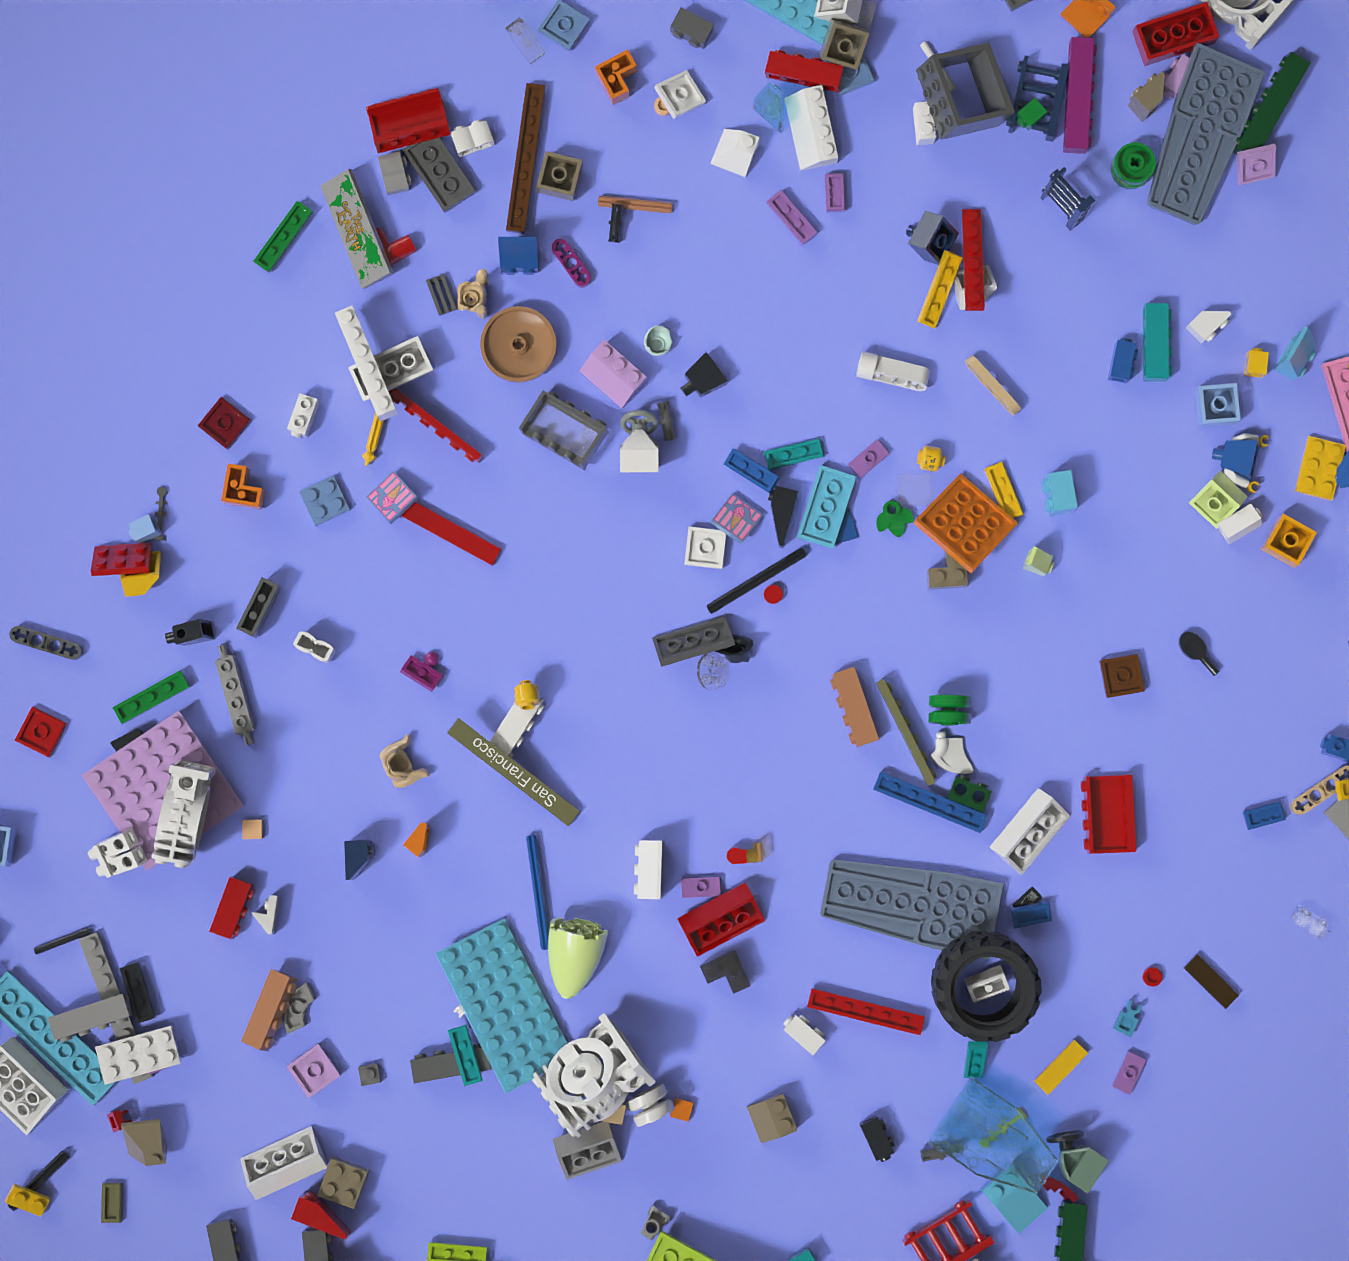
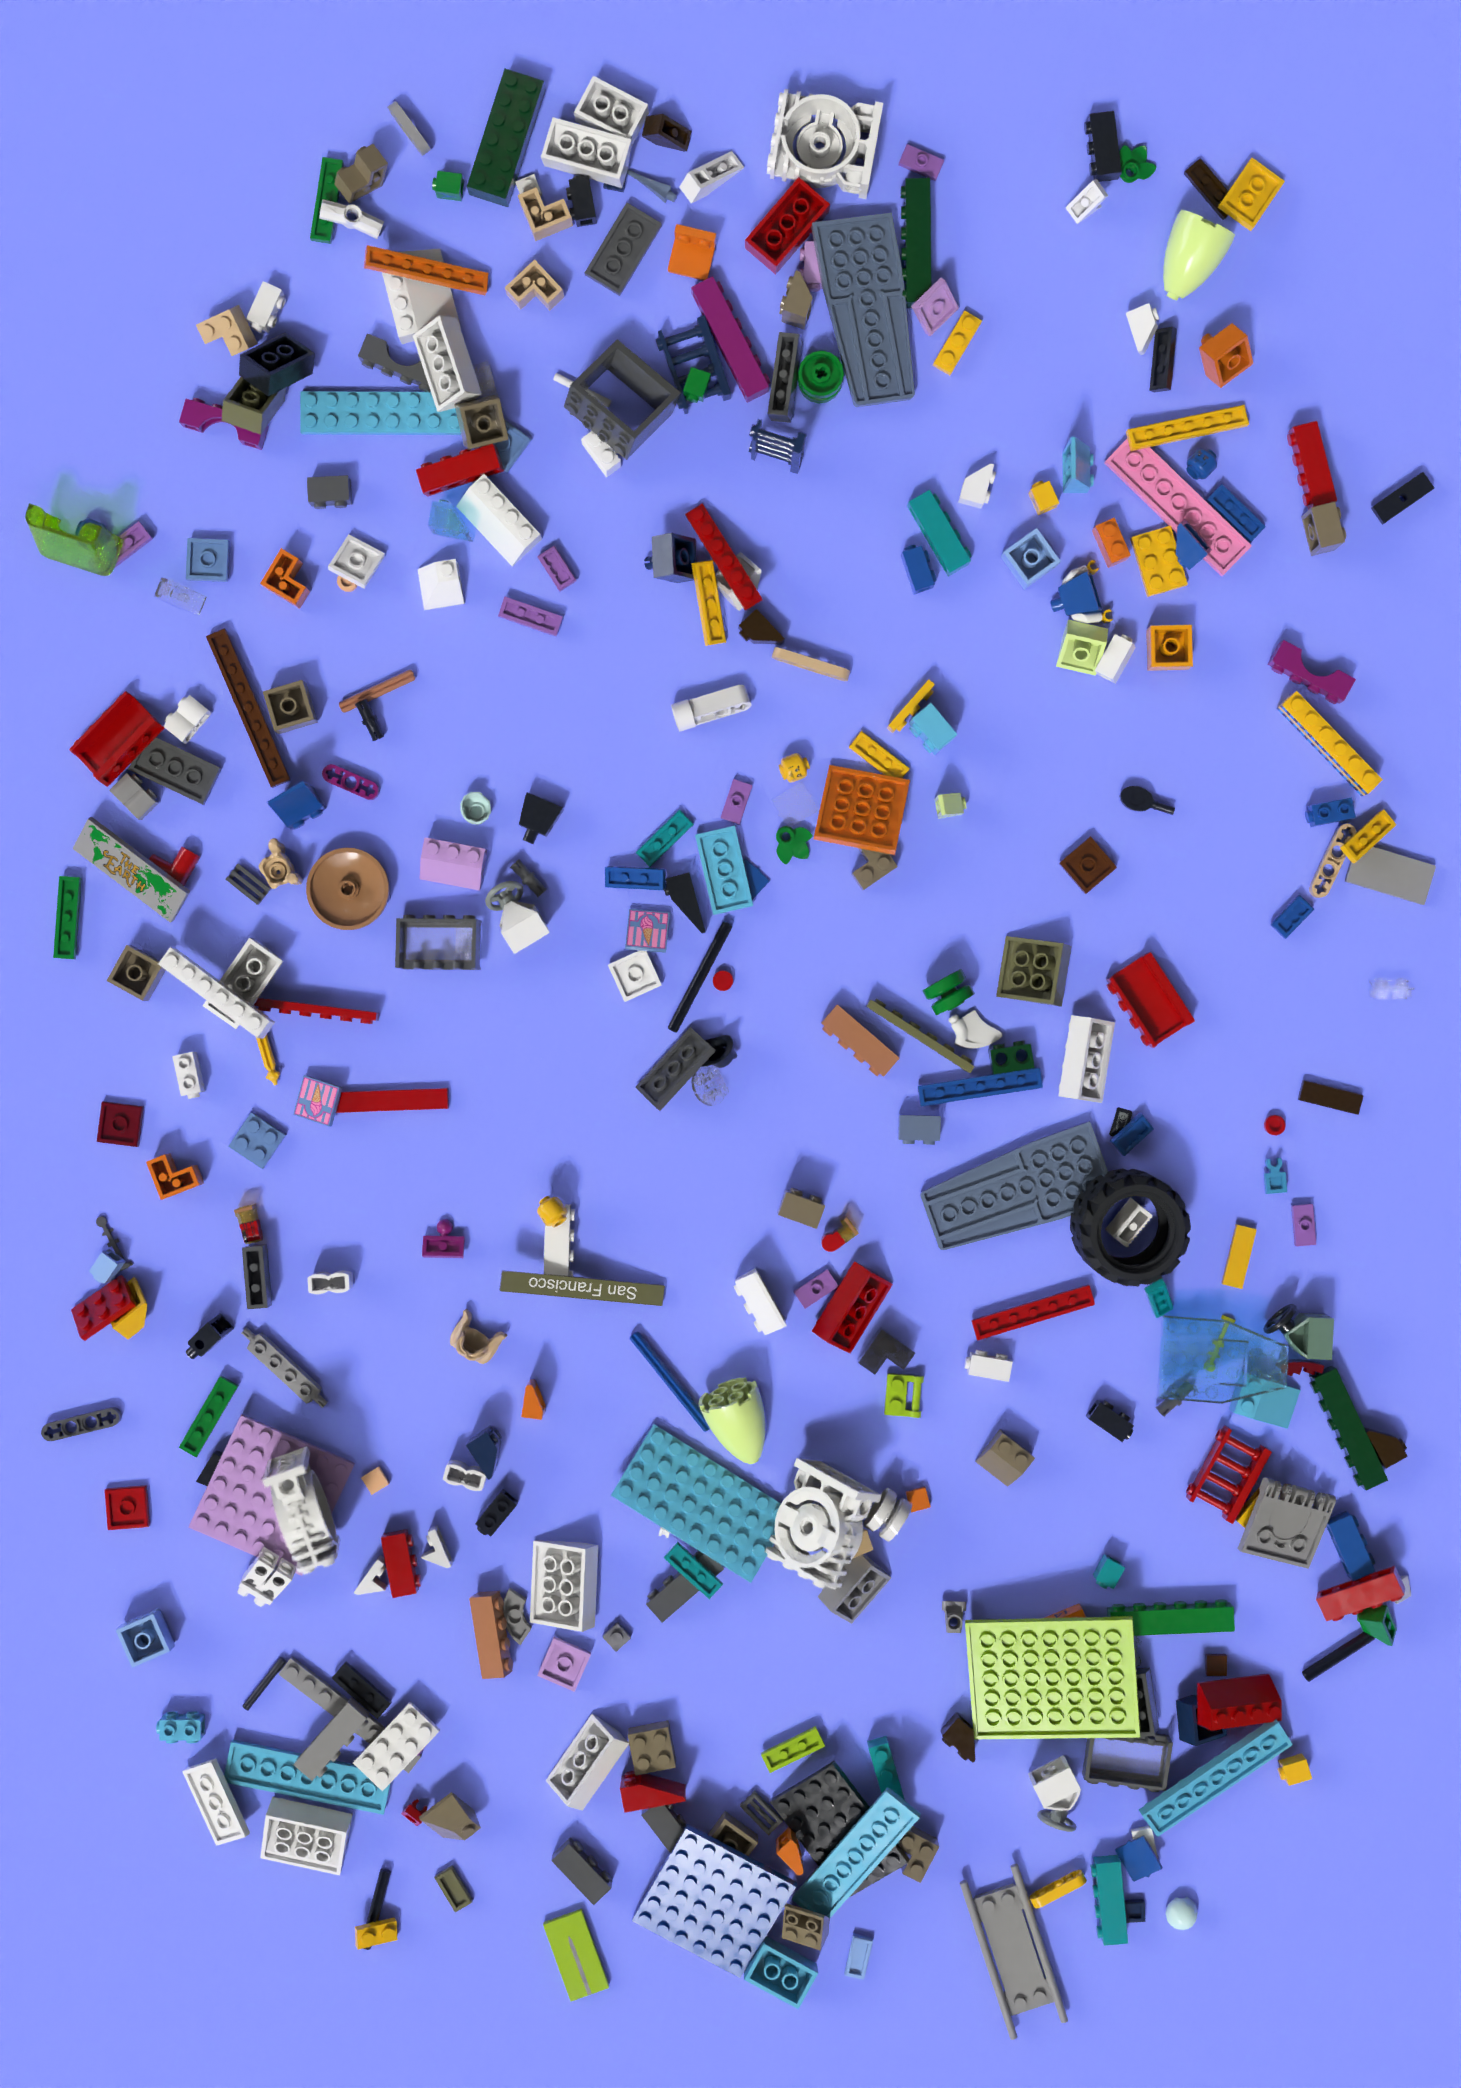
camera: 30 degrees left, 5 degrees up
(197, 908) = (371, 1583): none -> white slope
(278, 562) = (249, 1223): none -> leg
(311, 312) = (136, 973): none -> dark tan brick
(324, 863) = (460, 1473): none -> white brick
(333, 914) = (496, 1513): none -> black brick
(353, 1005) = (564, 1584): none -> white slope
(715, 1012) = (896, 1395): none -> lime plate
(728, 813) = (801, 1208): none -> dark tan brick
(861, 806) = (919, 1128): none -> sand blue brick
(967, 334) = (759, 630): none -> dark brown slope
(1028, 735) = (1034, 971): none -> olive slope
(1053, 466) = (911, 707): none -> yellow plate
(1104, 149) = (785, 377): none -> dark grey brick
(1258, 203) = (957, 343): none -> yellow plate
(1289, 430) = (1111, 542): none -> orange brick
(1311, 47) = (921, 162): none -> medium lavender plate

